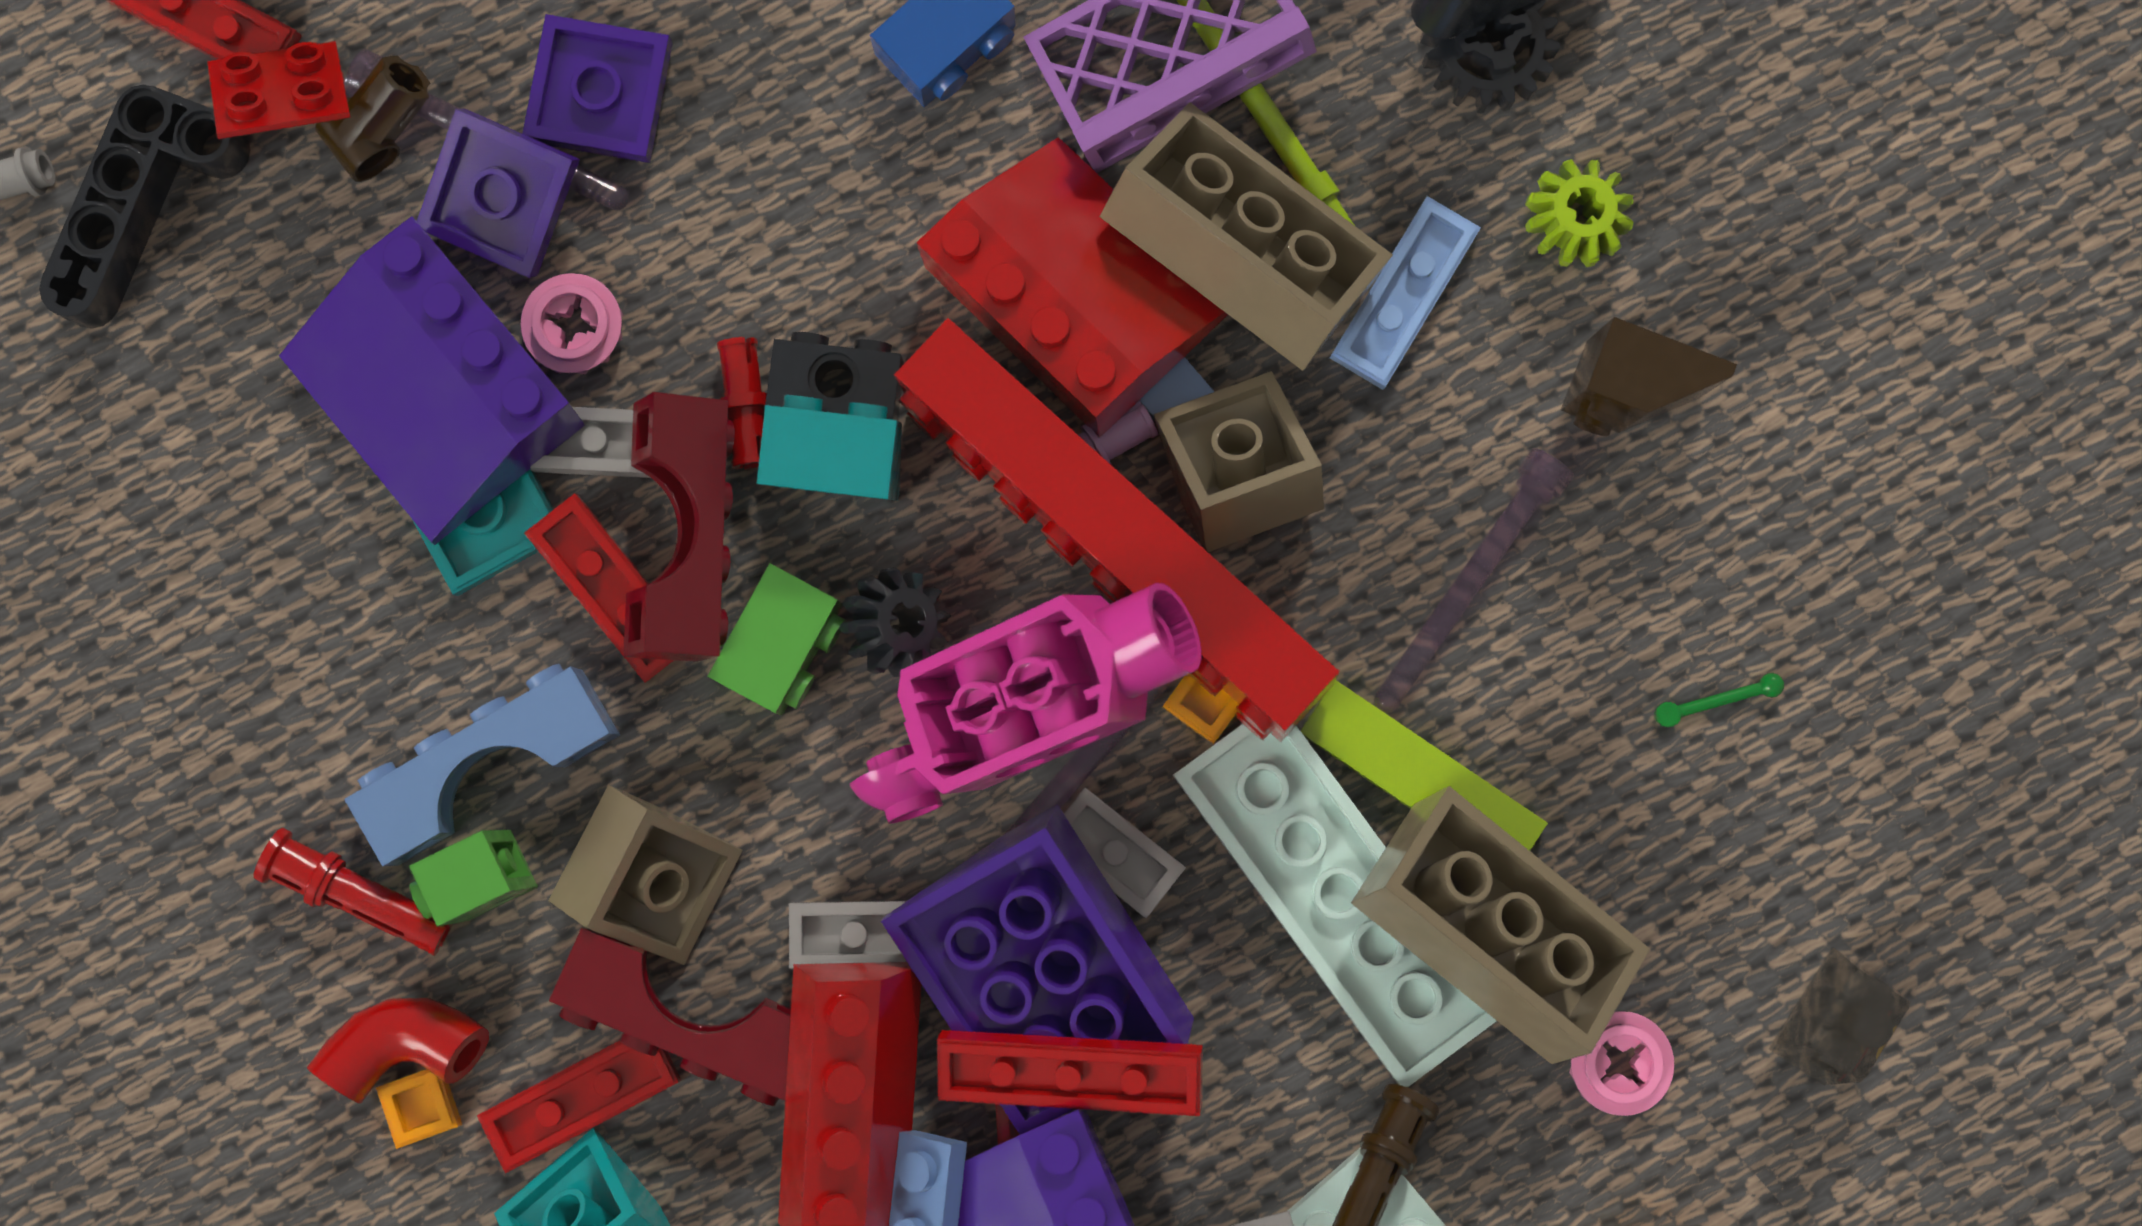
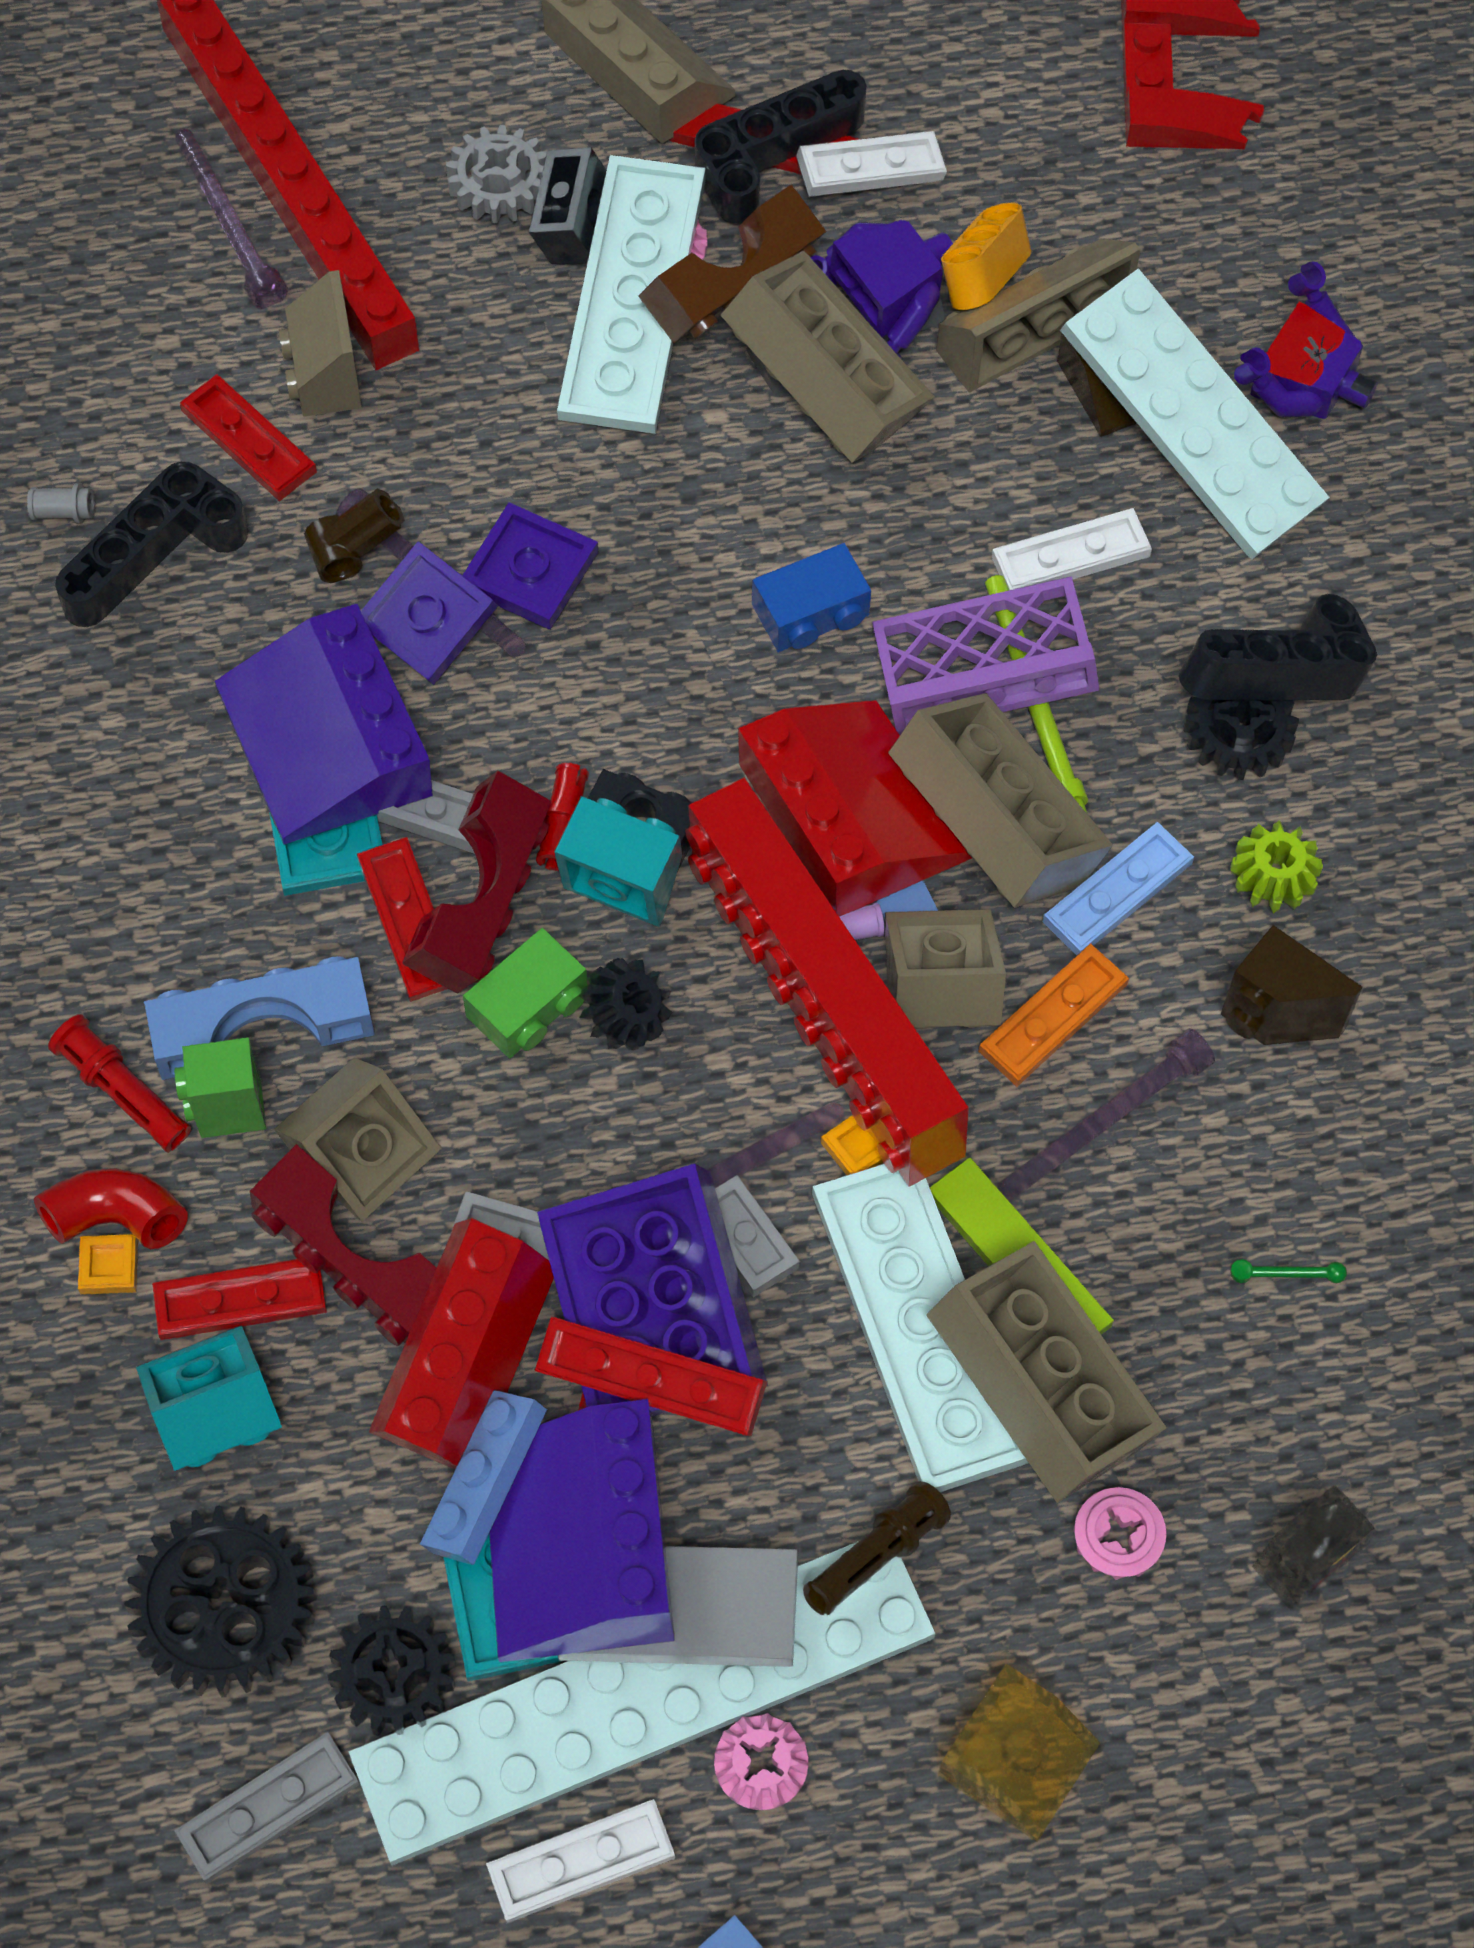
camera: 20 degrees right, 20 degrees down
(277, 89) = (269, 487): red hinge -> none
(559, 298) = (444, 704): bright pink gear -> none
(1028, 695) = (709, 1065): dark pink brick -> none
(1377, 472) = (1053, 1015): none -> orange tile

